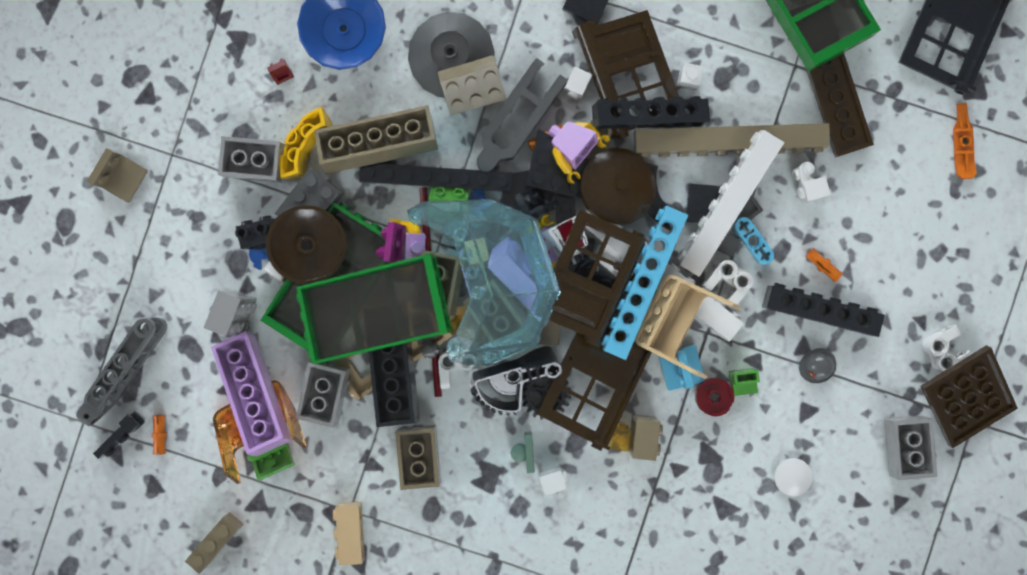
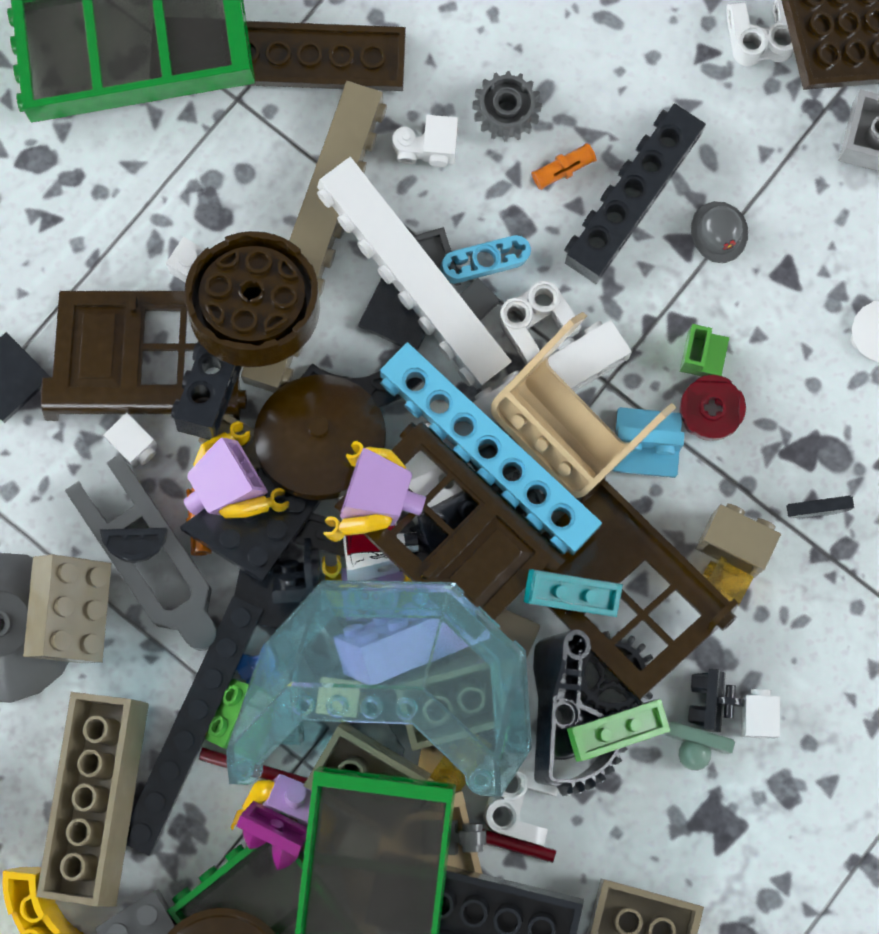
camera: 70 degrees left, 10 degrees down
(515, 408) = (618, 730): none -> bright green plate
(520, 107) = (134, 544): none -> black tile
(560, 450) = (713, 685): none -> black hips
(581, 357) = (572, 593): none -> teal tile
(595, 229) = (375, 493): none -> lavender torso
(667, 132) = (259, 329): none -> dark brown brick
(680, 475) = (820, 507): none -> black tile
(858, 218) = (507, 89): none -> dark grey gear

